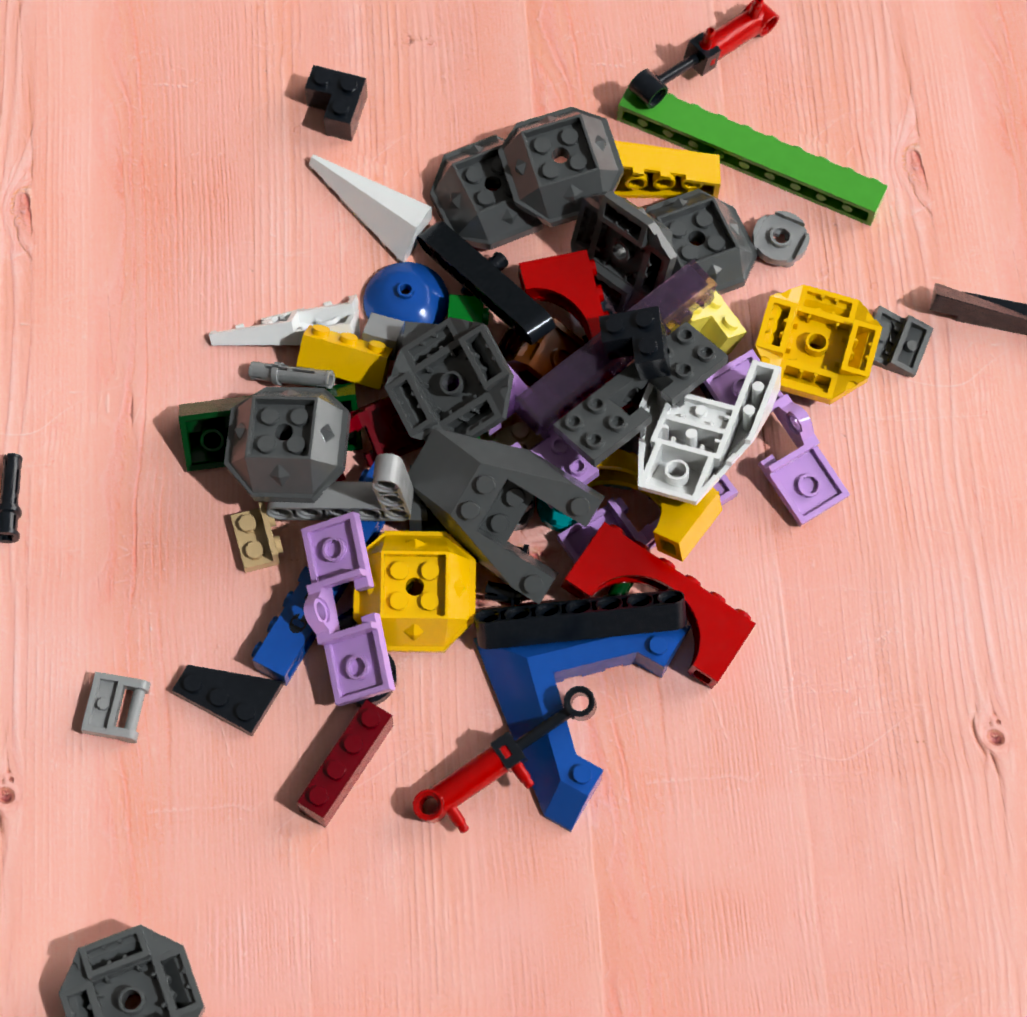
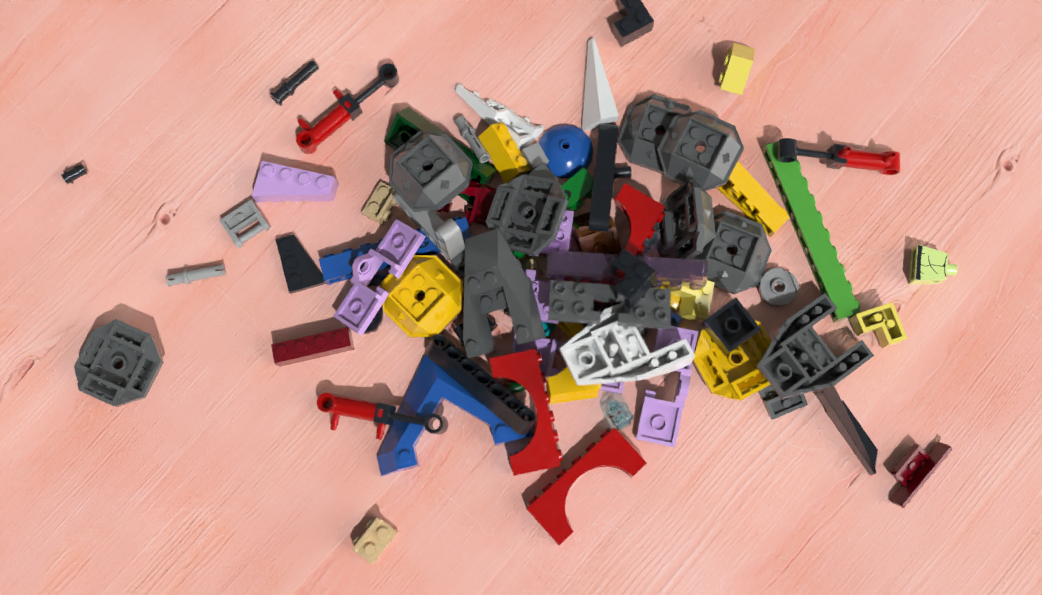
camera: 50 degrees right, 10 degrees up
(107, 474) = (342, 113): none -> piece
(116, 817) = (195, 275): none -> light grey pin
(130, 609) = (286, 183): none -> lavender wedge
(508, 52) = (738, 63): none -> light yellow brick
(639, 905) = (374, 540): none -> tan bracket
(758, 516) = (618, 415): none -> clear light blue head
(783, 308) = (730, 326): none -> black brick
(790, 680) = (609, 452): none -> red arch
(886, 278) = (801, 360): none -> dark grey wedge
(904, 84) = (929, 266): none -> yellowish green torso
(923, 177) = (883, 321): none -> light yellow brick

